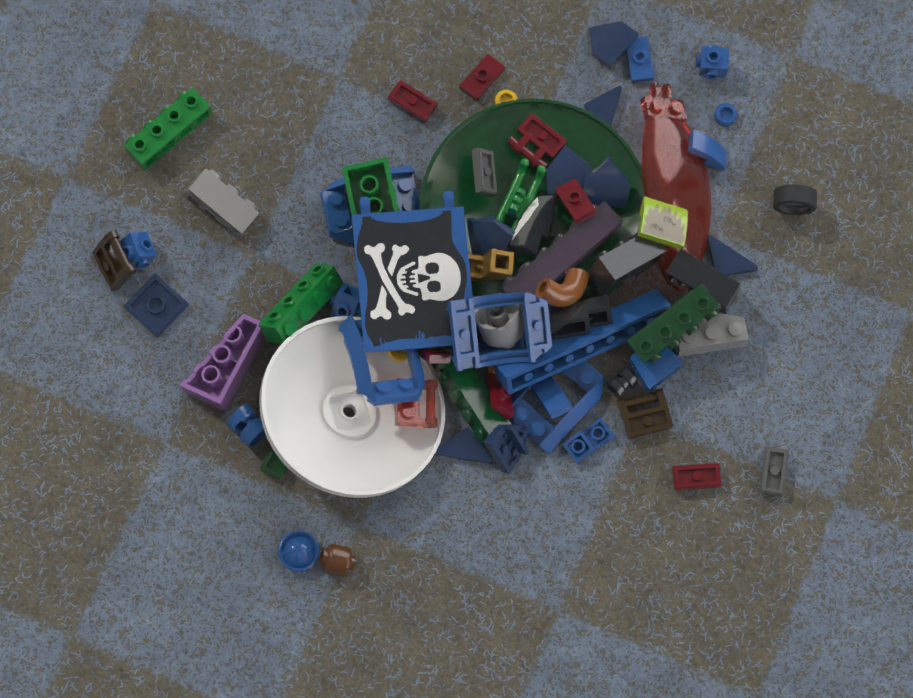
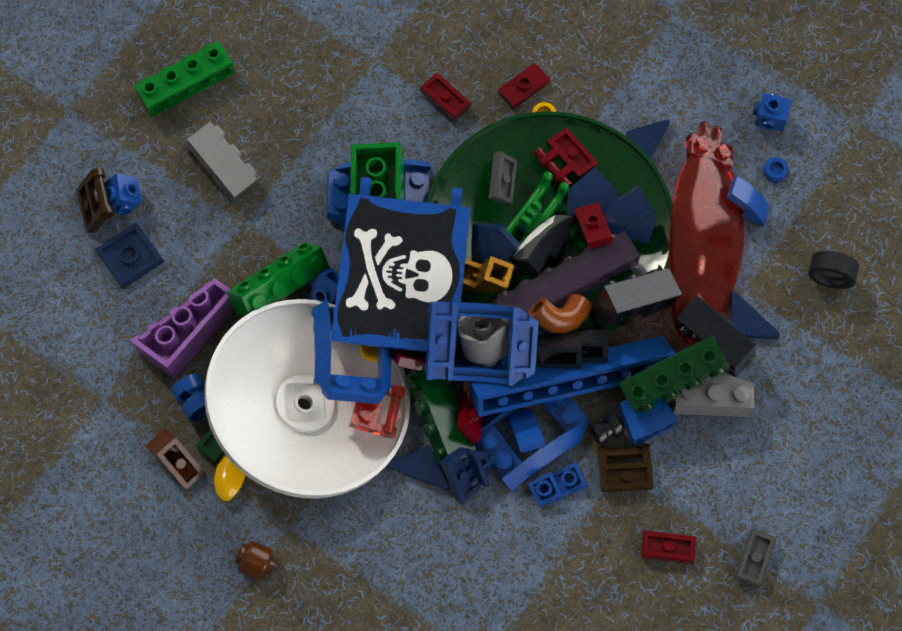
camera: 15 degrees right, 5 degrees down
(244, 483) = (175, 458): none -> reddish brown slope
(295, 492) = (227, 479): none -> yellow arm
(298, 550) = (216, 542): blue hat -> none
(611, 41) = (668, 73): dark blue slope -> none
(640, 61) = (694, 97): blue plate -> none
(663, 223) = (683, 265): slope -> none

